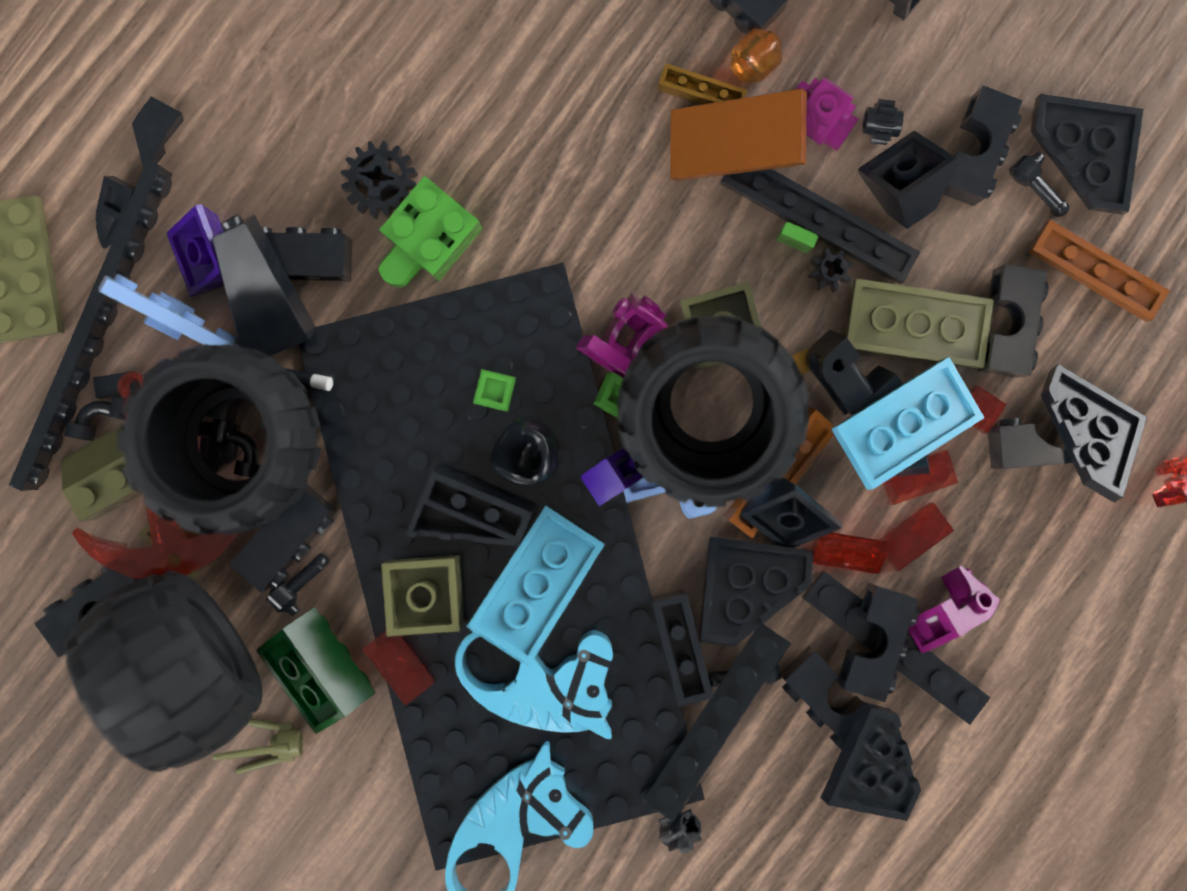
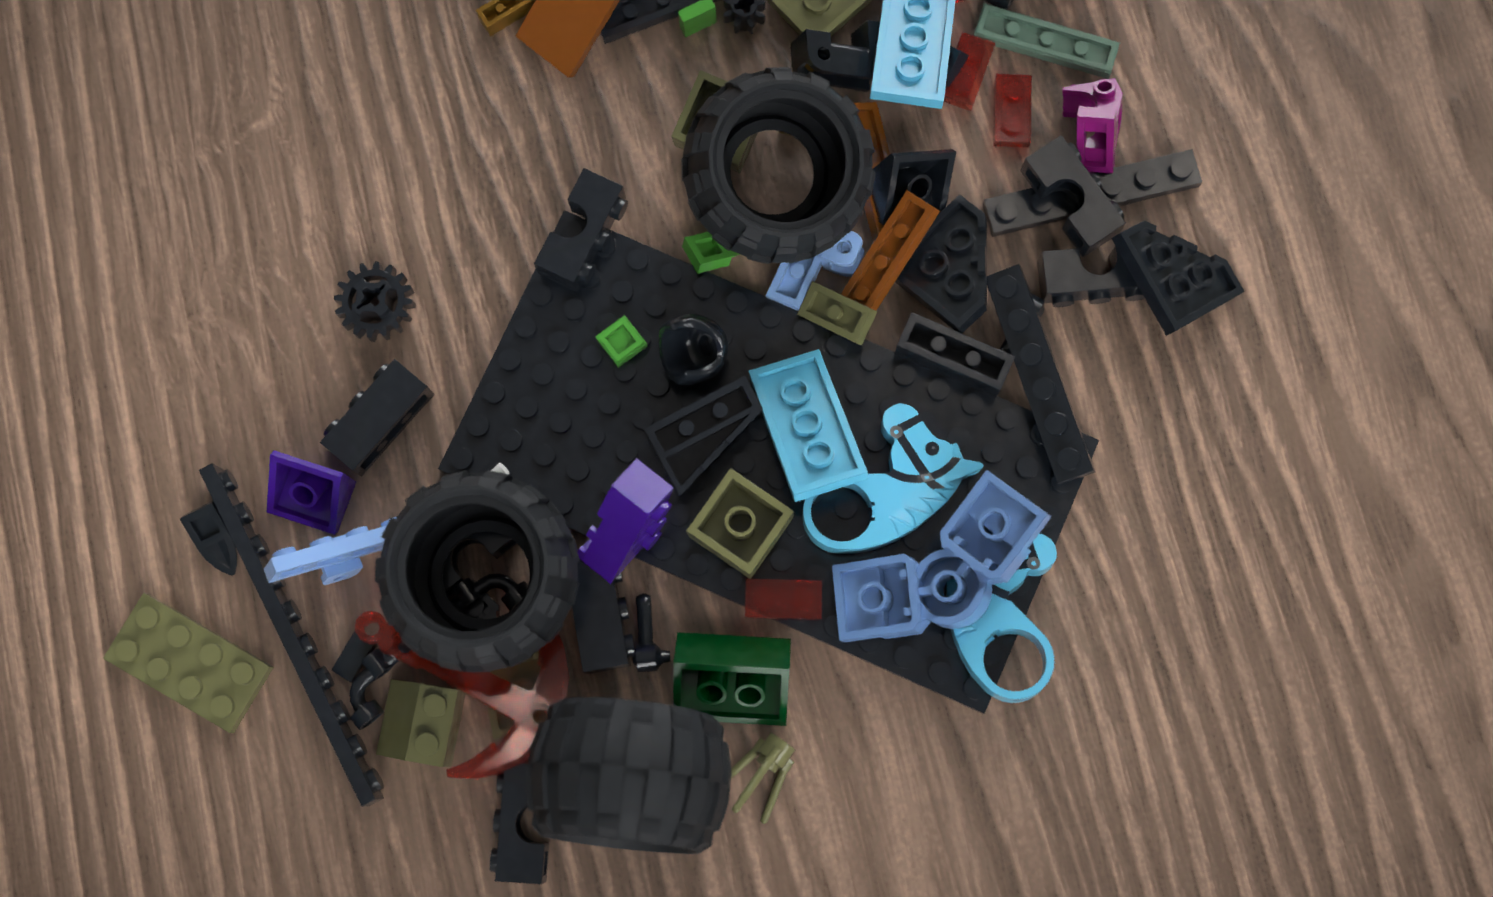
camera: 40 degrees left, 10 degrees down
(153, 129) = (176, 451): black slope -> none
(259, 292) = (376, 457): black slope -> none
(350, 515) = (630, 521): none -> dark purple wedge
(422, 235) = (448, 299): bright green brick -> none
(524, 304) = (571, 259): none -> black arch
(538, 791) = (981, 548): none -> medium blue plate
(611, 476) = (768, 293): dark purple slope -> none
(638, 314) = (660, 183): magenta tile -> none
(644, 535) = (837, 313): none -> olive plate
(680, 833) = (1109, 479): black gear -> none
(711, 539) = (891, 251): none -> dark orange plate
(850, 552) = (984, 166): clear red plate -> none
(992, 519) = (1047, 41): none -> sand green tile

